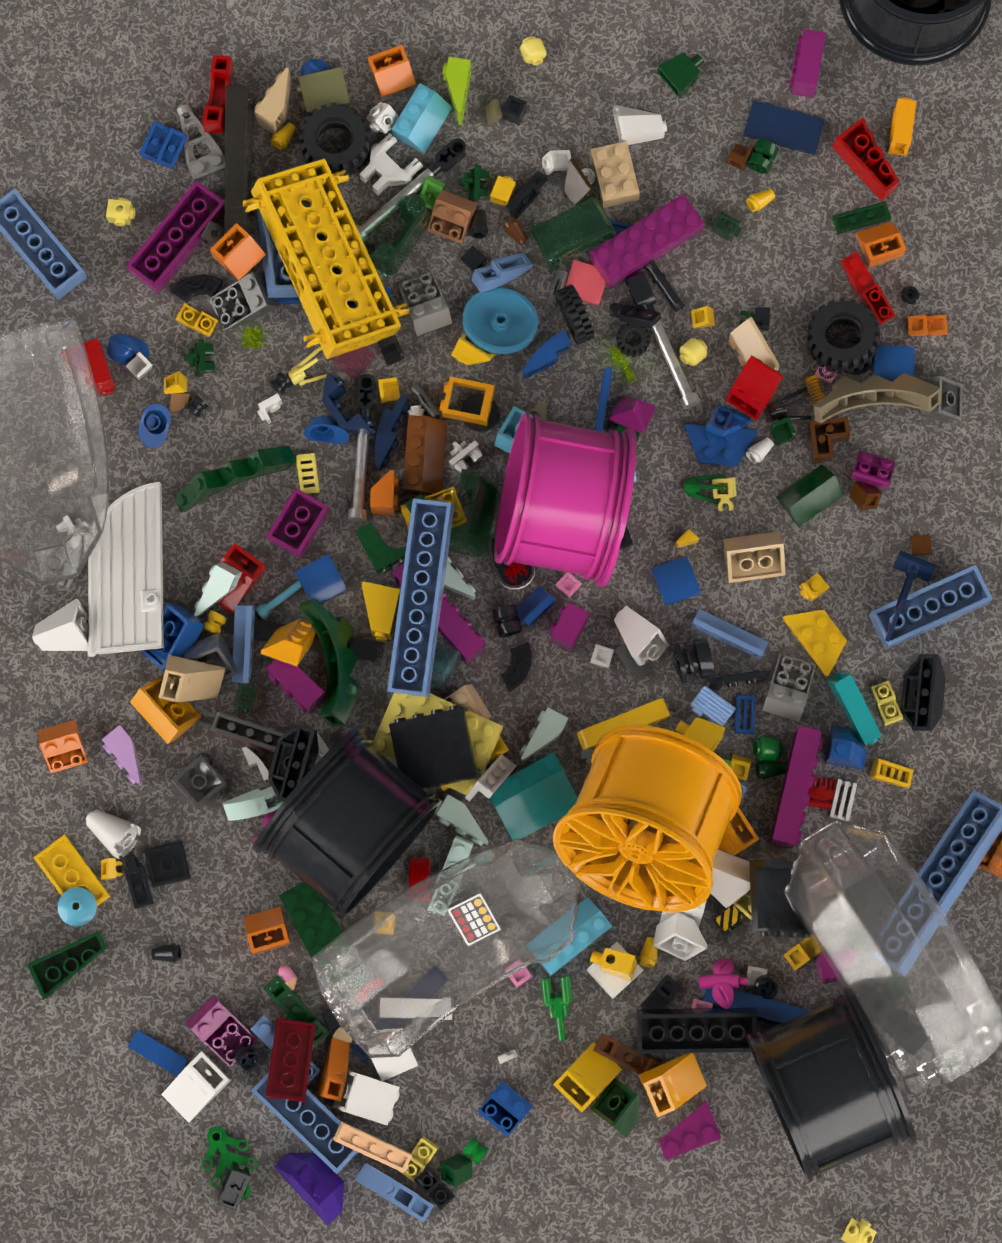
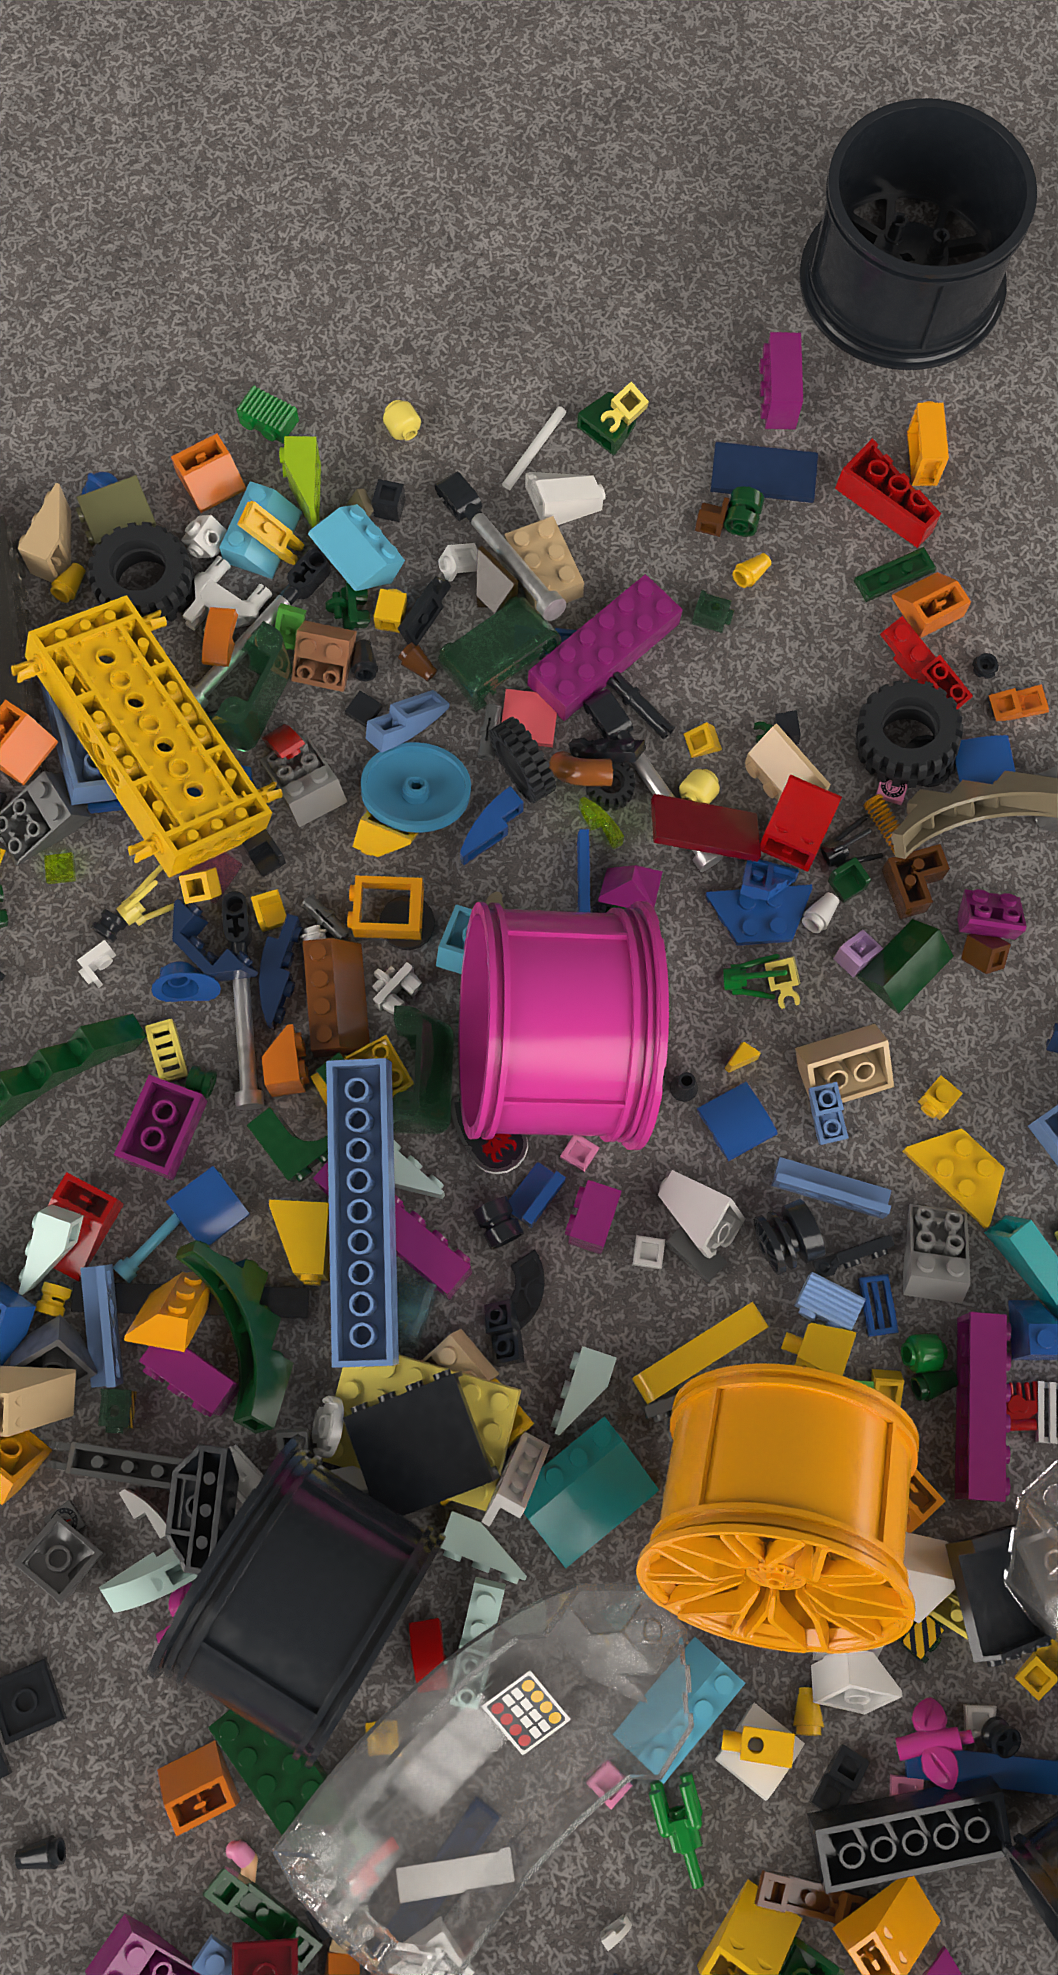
camera: 15 degrees left, 5 degrees down
(328, 497) = (201, 1081): none -> dark green wheel
(346, 366) = (200, 885): none -> yellow brick
(378, 728) = (328, 1426): none -> white tile
(381, 193) = (218, 636): none -> orange slope
(415, 275) = (284, 742): none -> red slope
(428, 123) = (270, 532): none -> yellow hinge
(439, 32) = (267, 414): none -> green brick
(486, 143) = (357, 548): none -> medium azure slope
(500, 691) = (505, 1332): none -> black slope
(568, 121) = (465, 503): none -> flat silver piece
(614, 328) = (581, 770): none -> dark orange cylinder
(627, 80) = (534, 448): none -> white bar
(645, 556) = (682, 1092): none -> black cone
(691, 380) = (705, 827): none -> dark red tile
(692, 69) = (627, 406): none -> light yellow brick
(736, 585) = (827, 1113): none -> medium blue slope
(779, 481) = (857, 953): none -> lavender slope

